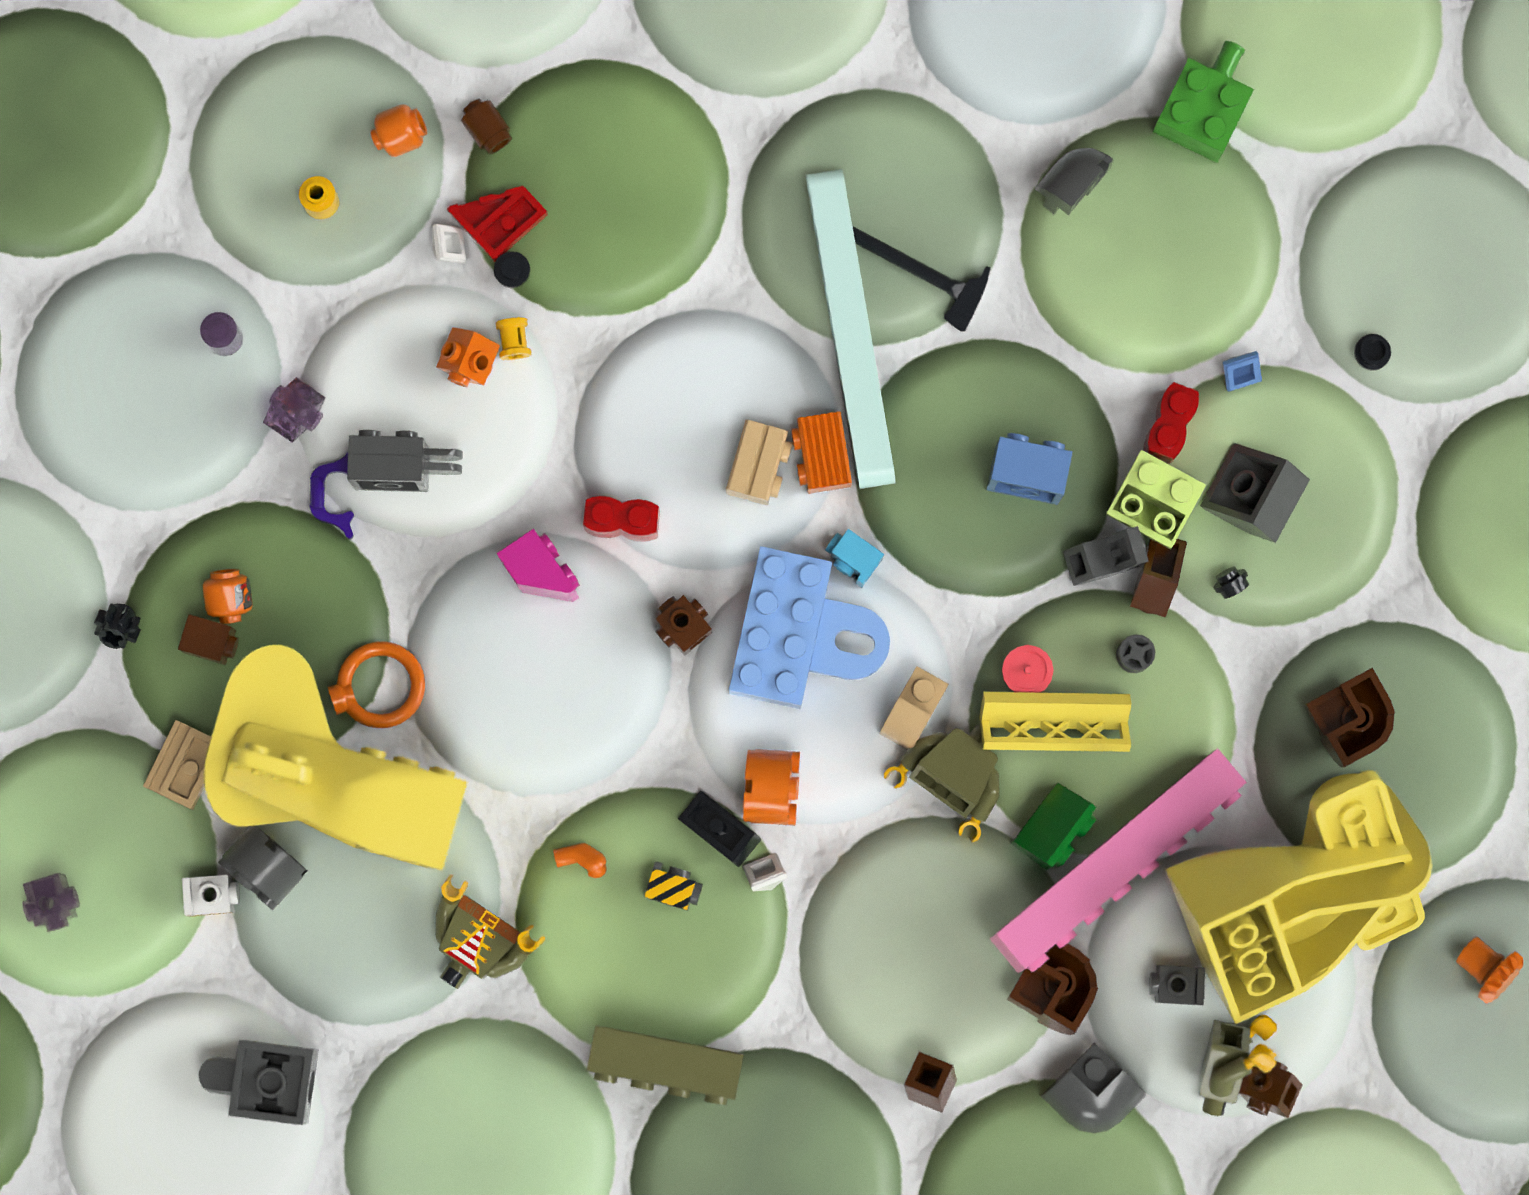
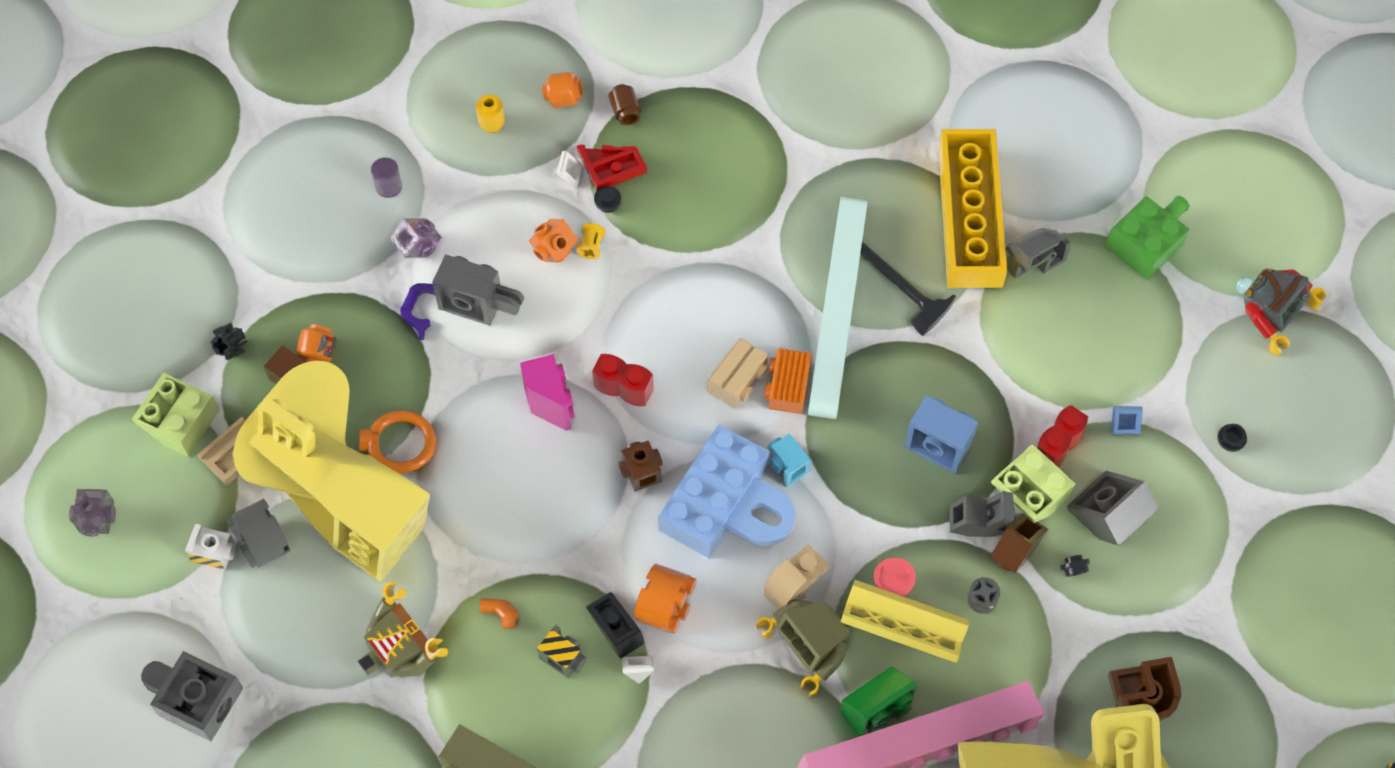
camera: 20 degrees right, 20 degrees down
(94, 743) = (176, 414): none -> yellowish green slope
(975, 140) = (972, 208): none -> yellow brick
(1381, 150) = (1275, 300): none -> torso

